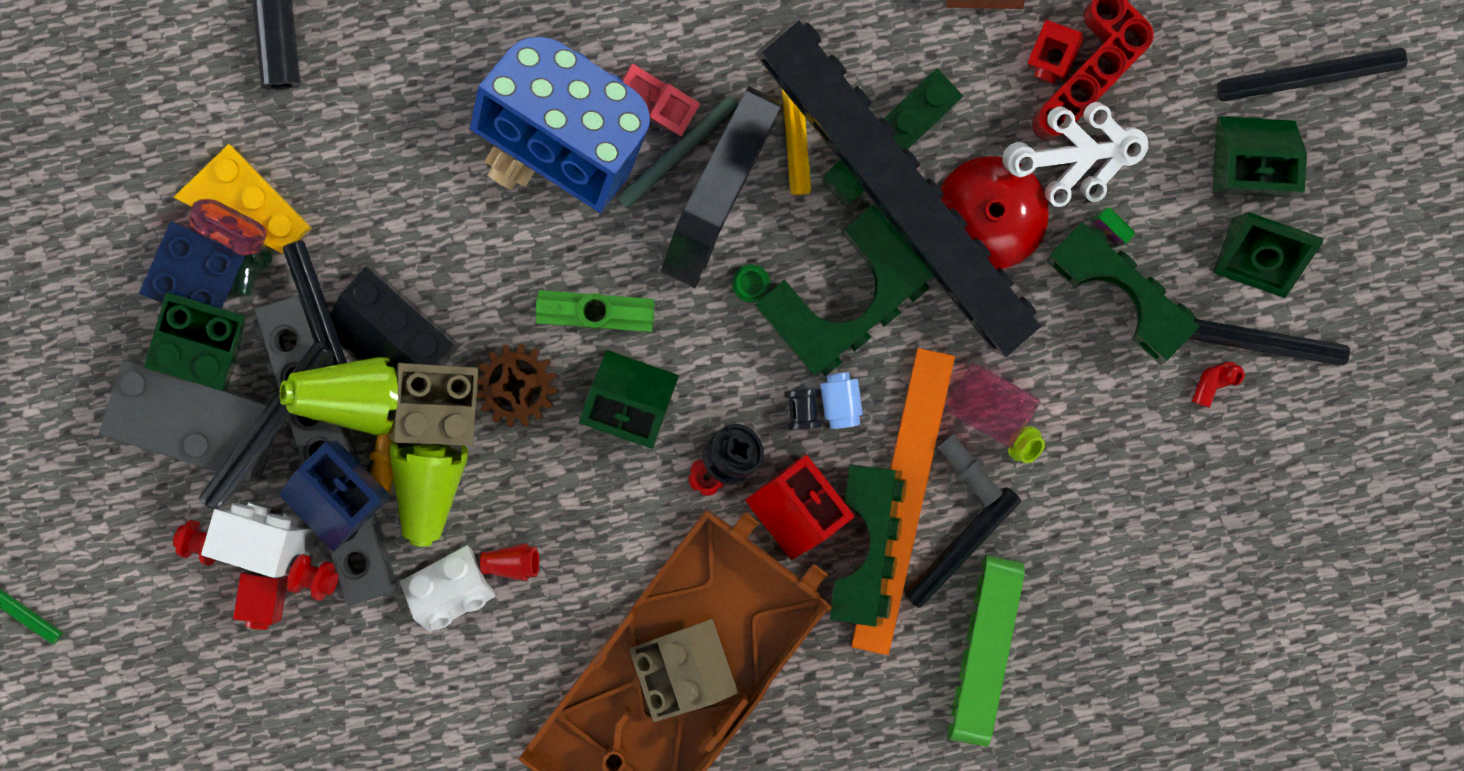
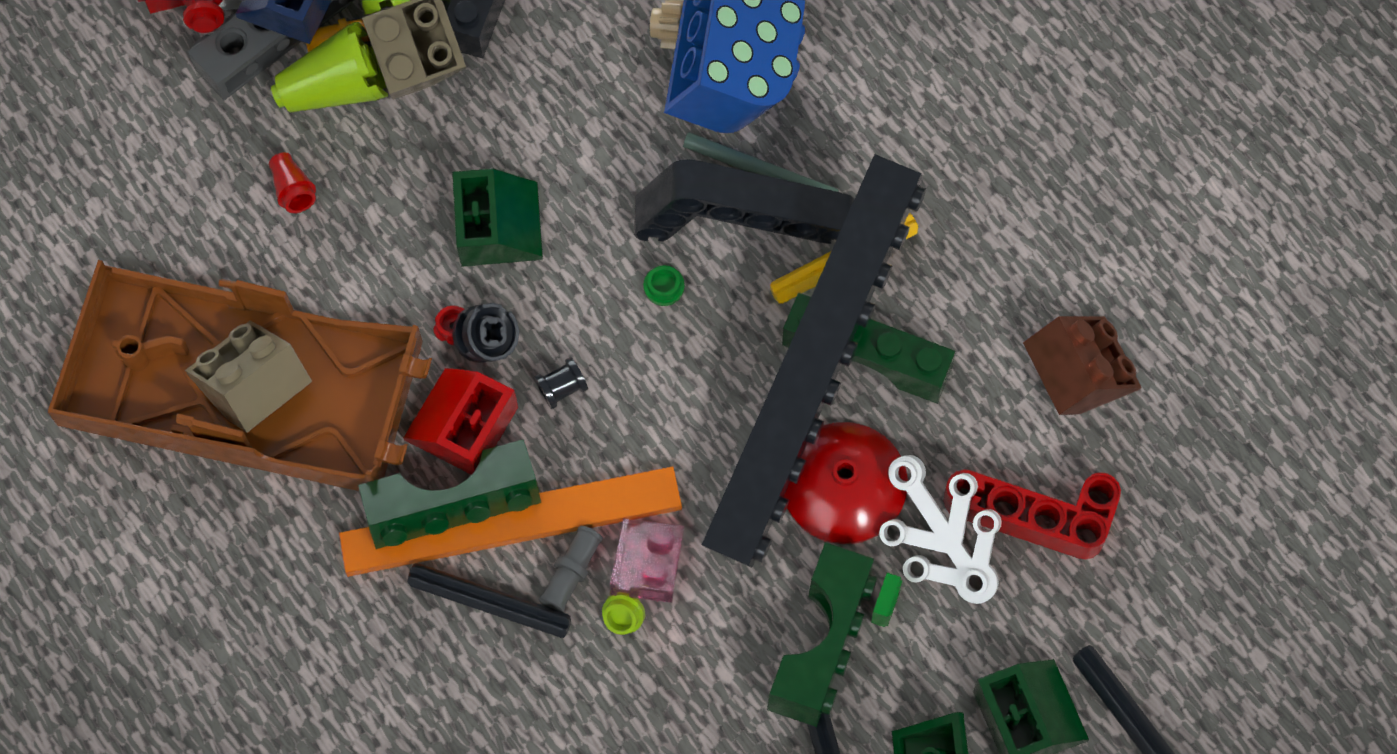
camera: 70 degrees right, 20 degrees down
(446, 590) = (238, 139): white bracket -> none
(510, 367) = (464, 100): reddish brown gear -> none
(570, 309) = (575, 174): bright green piece -> none
(665, 103) = (800, 127): coral slope -> none
(841, 400) = (586, 415): light blue brick -> none
(896, 275) = (634, 372): dark green arch -> none
(988, 651) = (389, 664): bright green beam -> none
(1054, 38) = (1033, 464): red brick -> none

